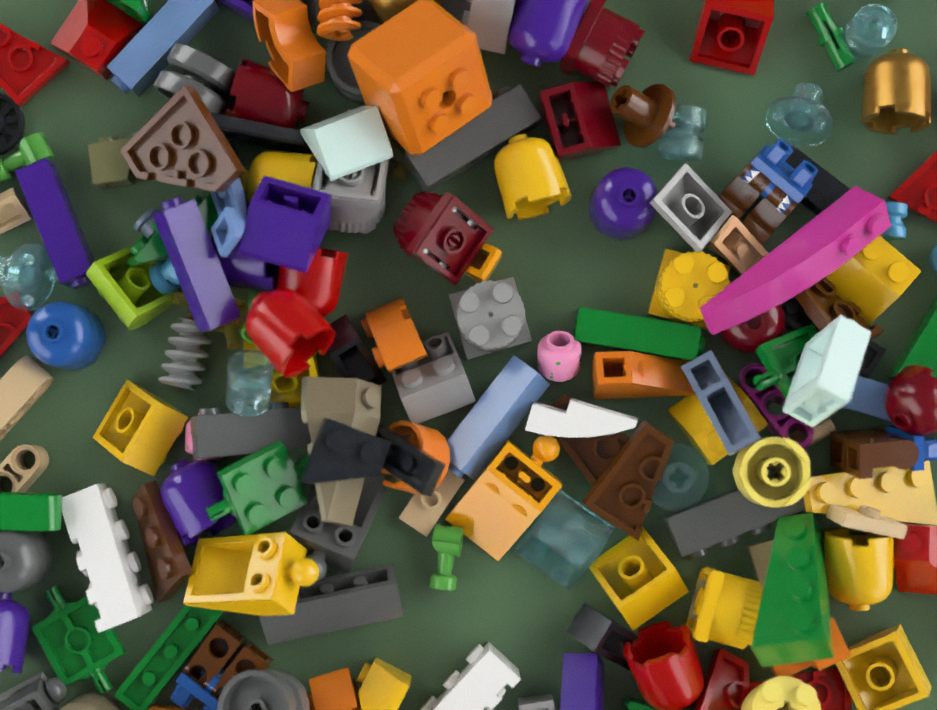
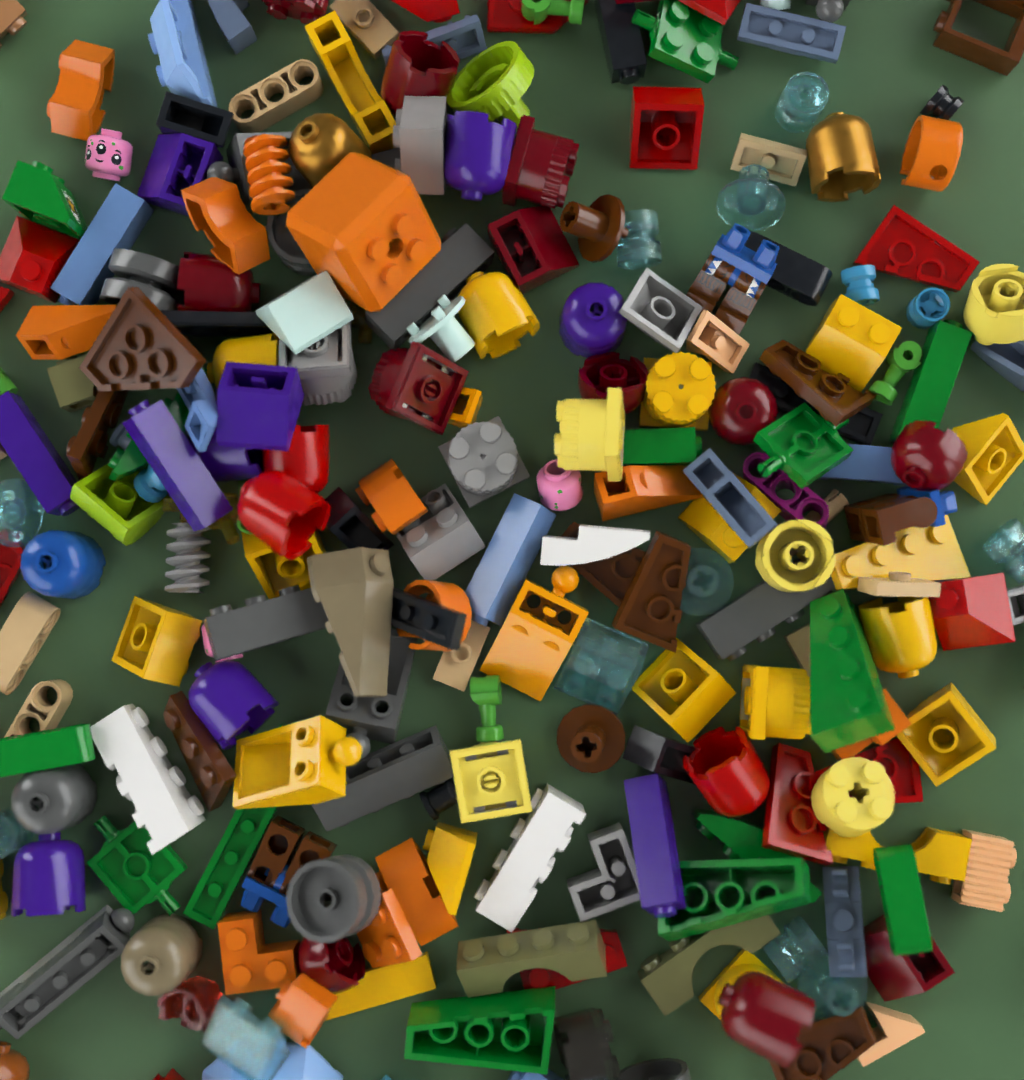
camera: 10 degrees left, 0 degrees up
(111, 110) = (62, 330): none -> orange slope
(119, 218) = (93, 435): none -> reddish brown wing
(248, 383) = (254, 573): clear light blue wheel -> none
(261, 488) = (288, 675): green plate -> none
(344, 454) = (363, 625): black wing -> none
(384, 635) = (439, 798): none -> black bush
(435, 627) = (490, 780): none -> light yellow piece
(478, 184) = (444, 329): none -> light aqua piece
(540, 606) = (591, 738): none -> reddish brown piece
(600, 315) = (592, 434): none -> light yellow piece
(629, 268) = (609, 371): none -> dark red cylinder
(800, 260) = (780, 340): dark pink slope -> none
(820, 17) = (764, 114): green pin -> none
(827, 371) = (830, 444): light aqua window -> none
(837, 83) = (780, 160): none -> tan plate
(915, 302) = (901, 361): none -> bright green leg

